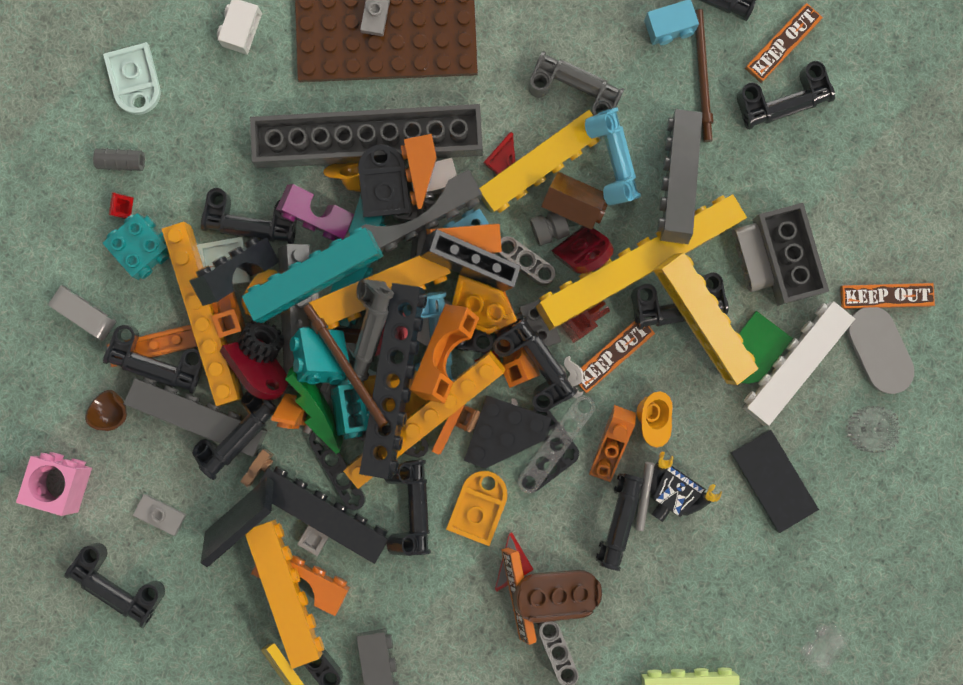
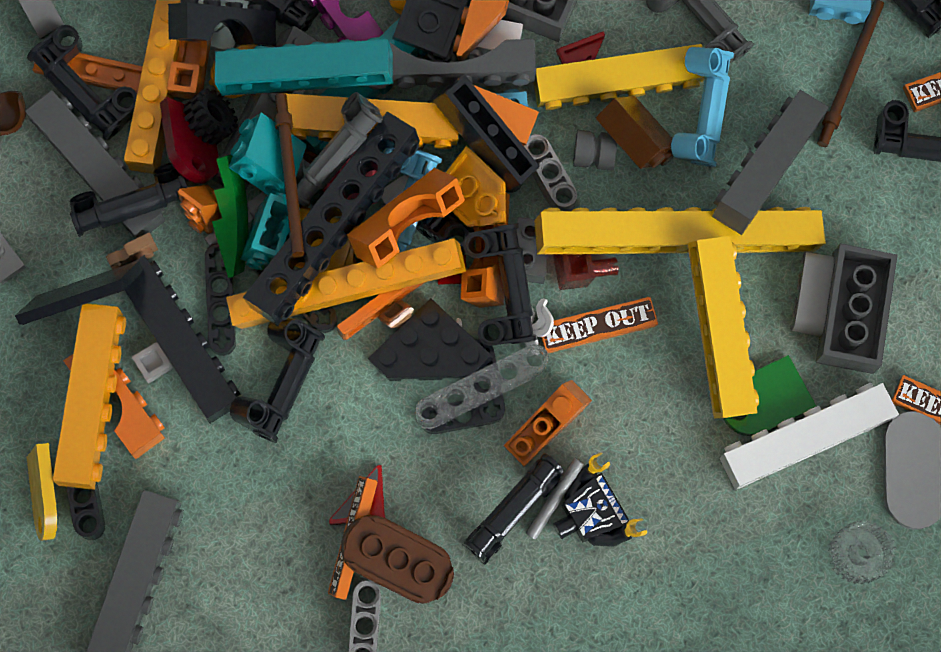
camera: 25 degrees right, 10 degrees down
(478, 509) = (356, 421): light orange tile -> none
(584, 250) = (620, 189): dark red tile -> none
(655, 418) = (612, 415): light orange piece -> none
(669, 313) = (662, 296): black piece -> none
(774, 481) = (717, 559): black tile -> none

